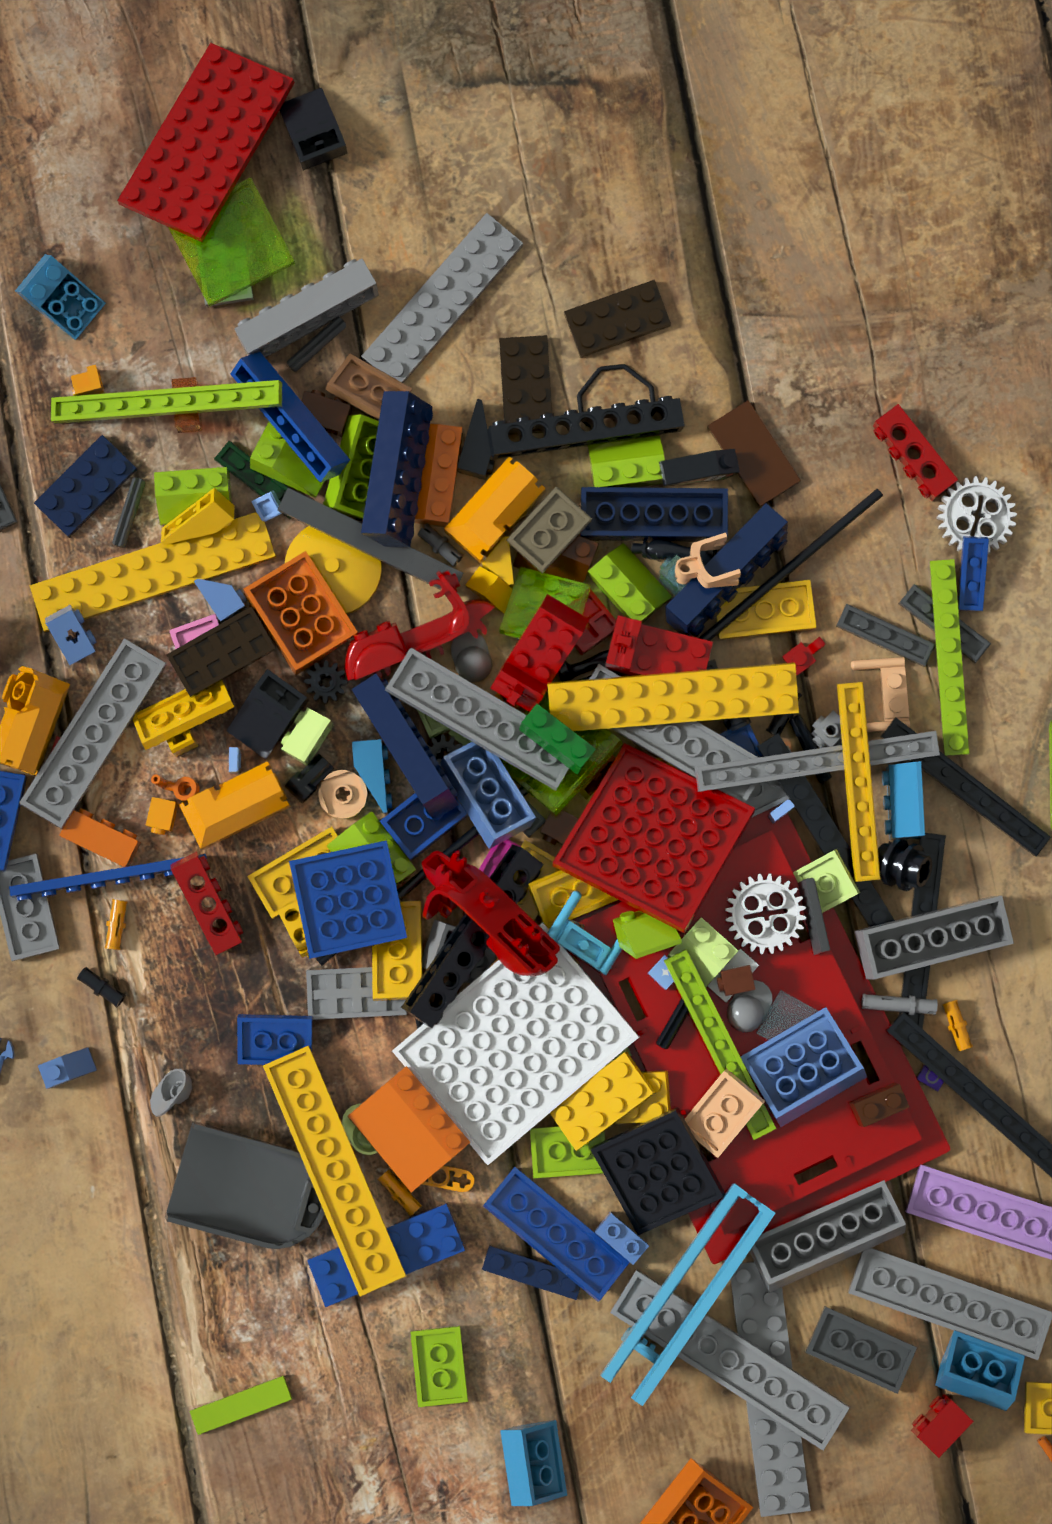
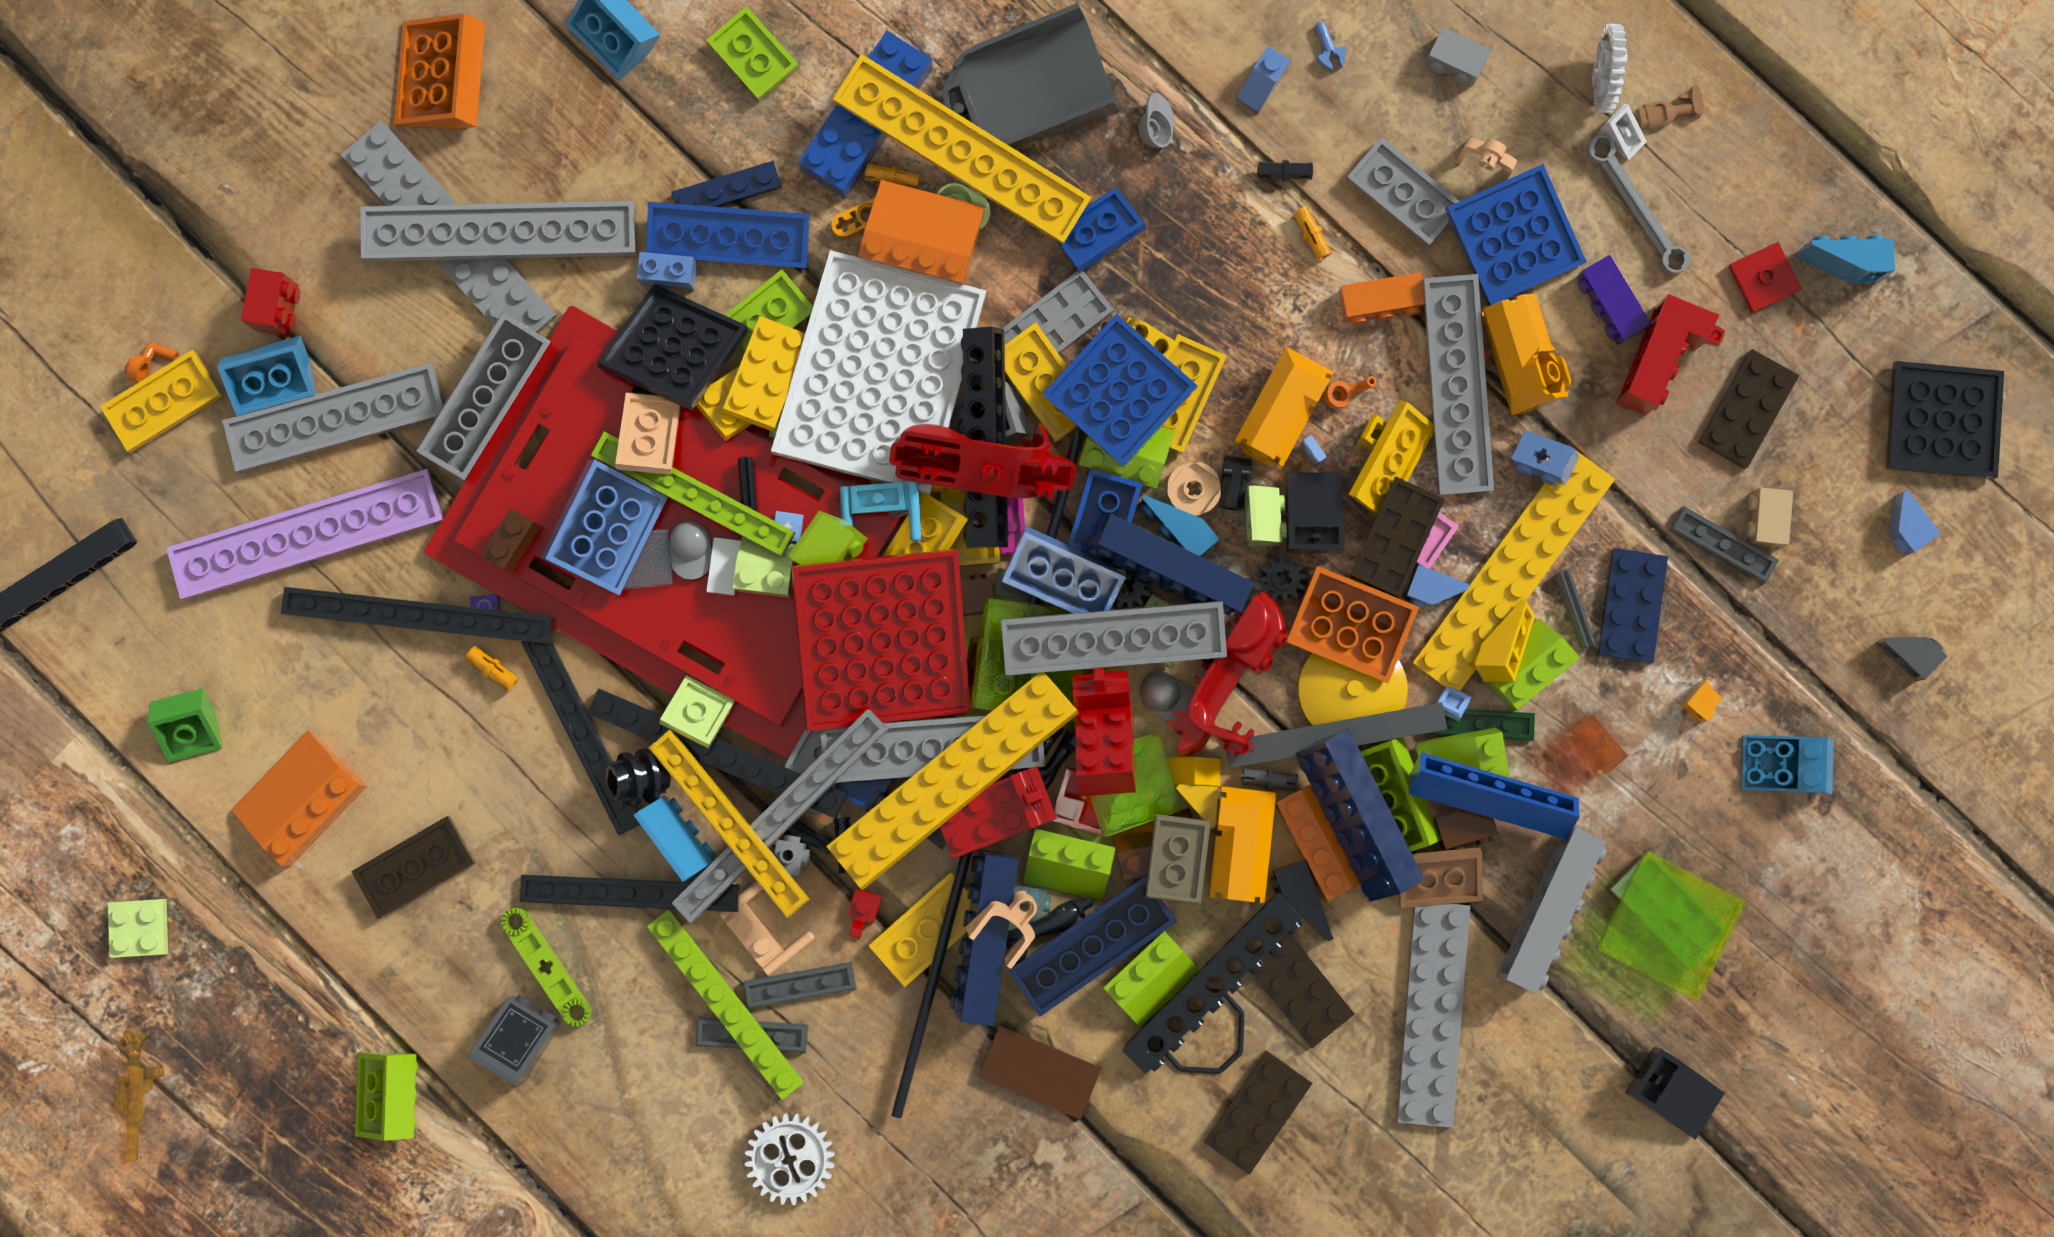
camera: 145 degrees right, 0 degrees up
(95, 879) = (1357, 259): blue plate -> none
(161, 815) = (1342, 356): light orange brick -> none
(166, 401) = (1616, 730): lime plate -> none
(206, 142) = (1764, 1007): red plate -> none
(219, 939) = (1212, 282): red brick -> none
(316, 344) = (1519, 888): dark grey axle -> none
(557, 739) = (1032, 664): green brick -> none
(632, 1336) = (553, 191): medium azure piece -> none
(700, 467) = (1080, 1019): black slope -> none
(736, 980) = (716, 560): copper brick -> none
(769, 936) = (715, 623): white gear -> none
(780, 811) = (783, 749): light blue tile -> none
(814, 916) = (686, 670): dark grey tile -> none
(861, 1349) = (388, 322): dark grey plate -> none
(899, 1004) = (554, 650): light grey pin -> none
(913, 439) = (873, 1183): red brick -> none
(934, 937) = (564, 730): light grey brick -> none
(973, 573) = (756, 1099): blue plate -> none

